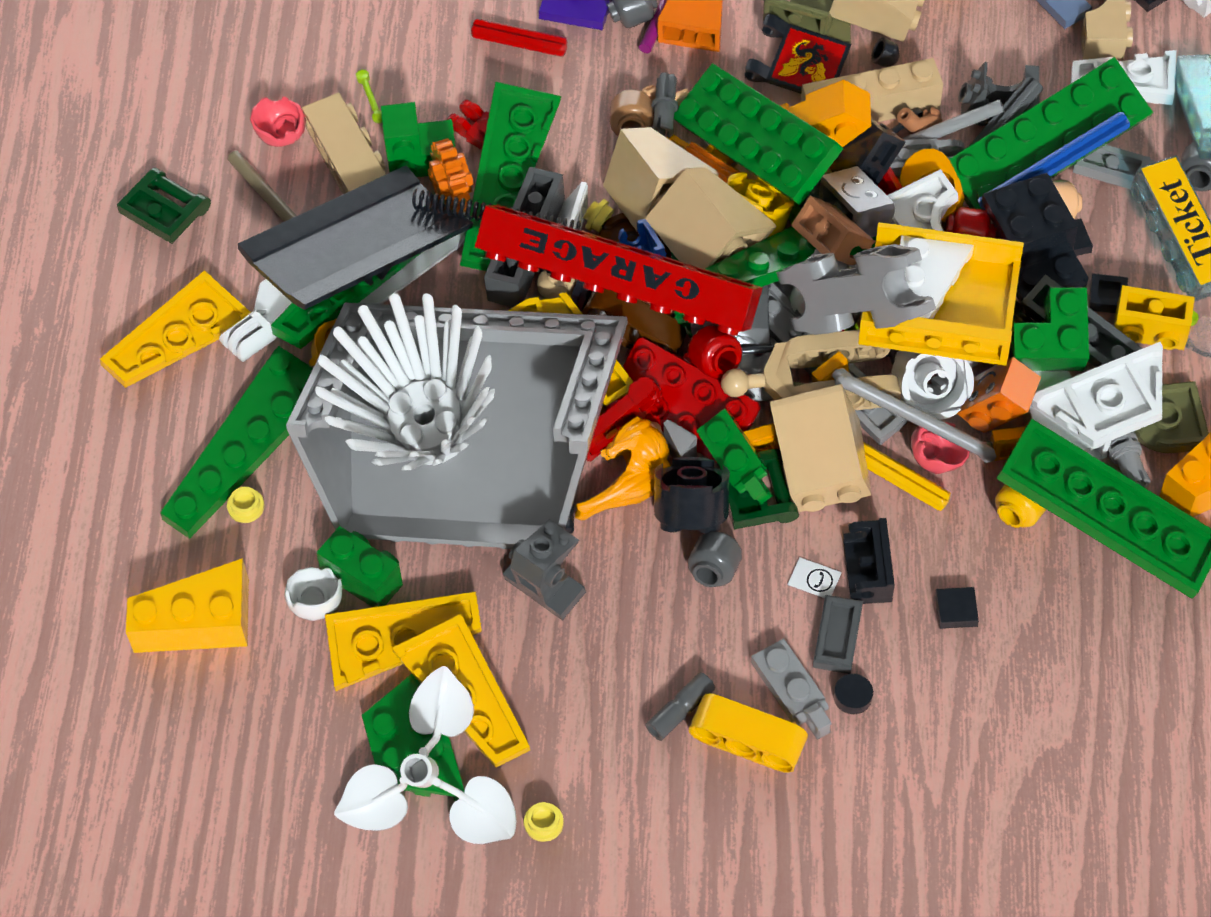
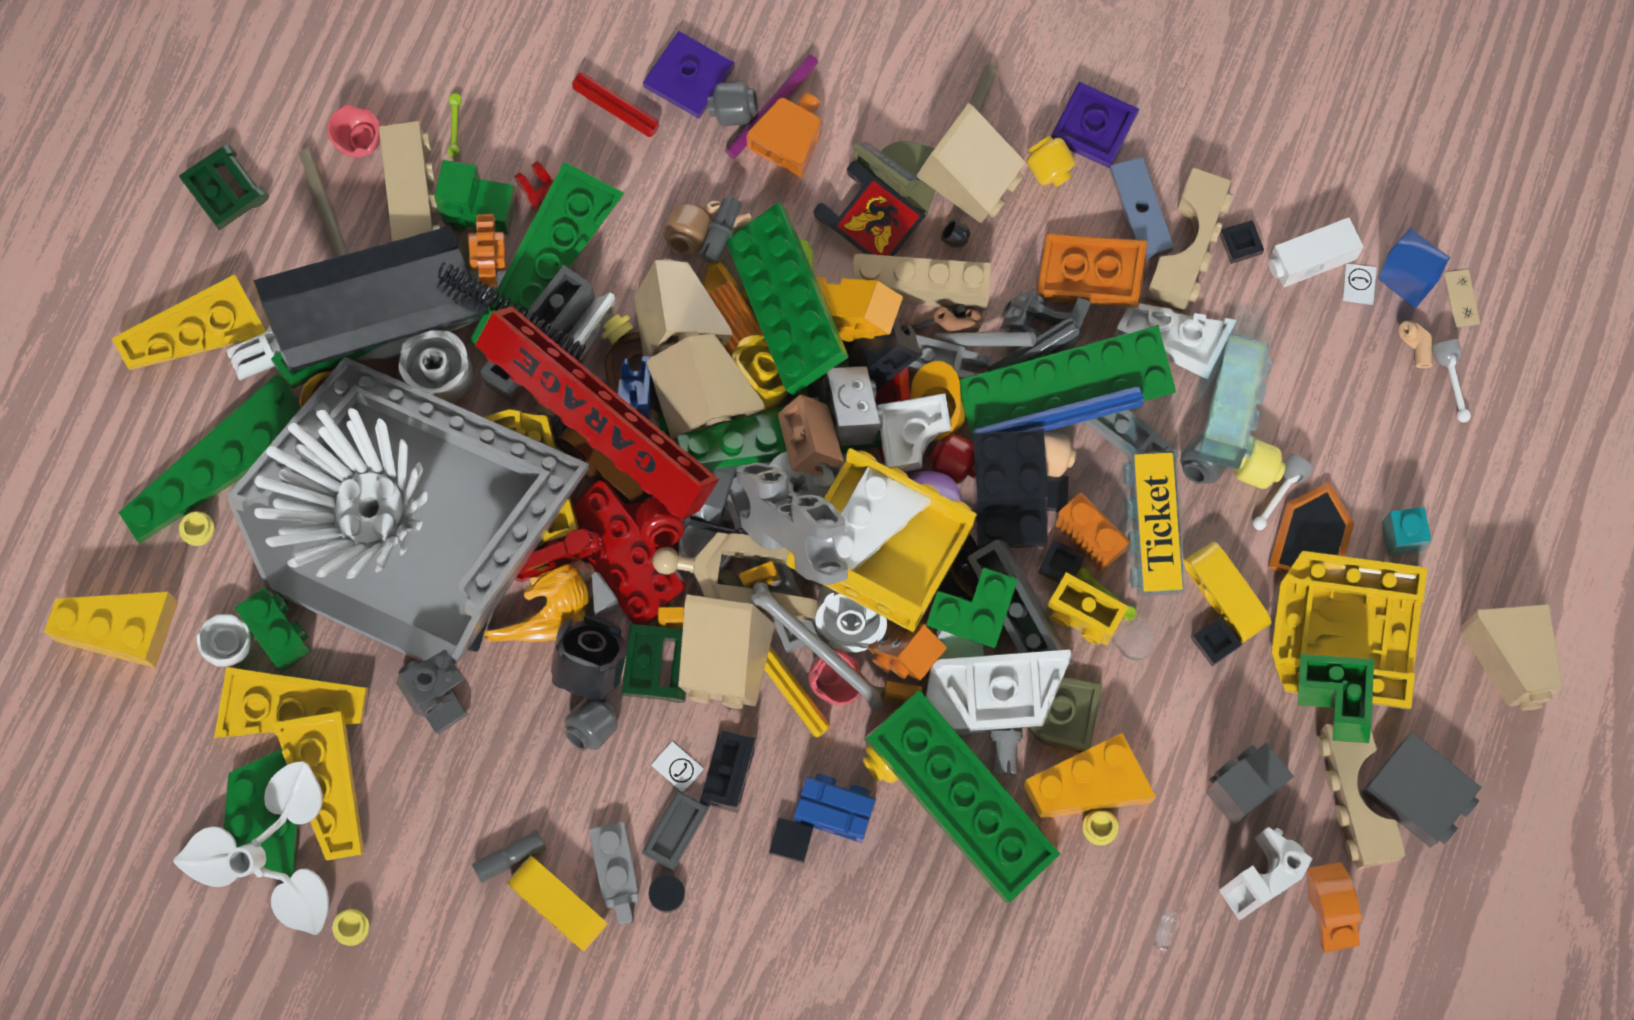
camera: 15 degrees right, 15 degrees up
(438, 275) = (444, 351): none -> white brick
(734, 451) = (644, 631): green hinge -> none
(990, 562) = (835, 808): none -> blue brick
(1033, 39) = (1092, 269): none -> orange tile
(1126, 254) = (1091, 532): none -> orange brick

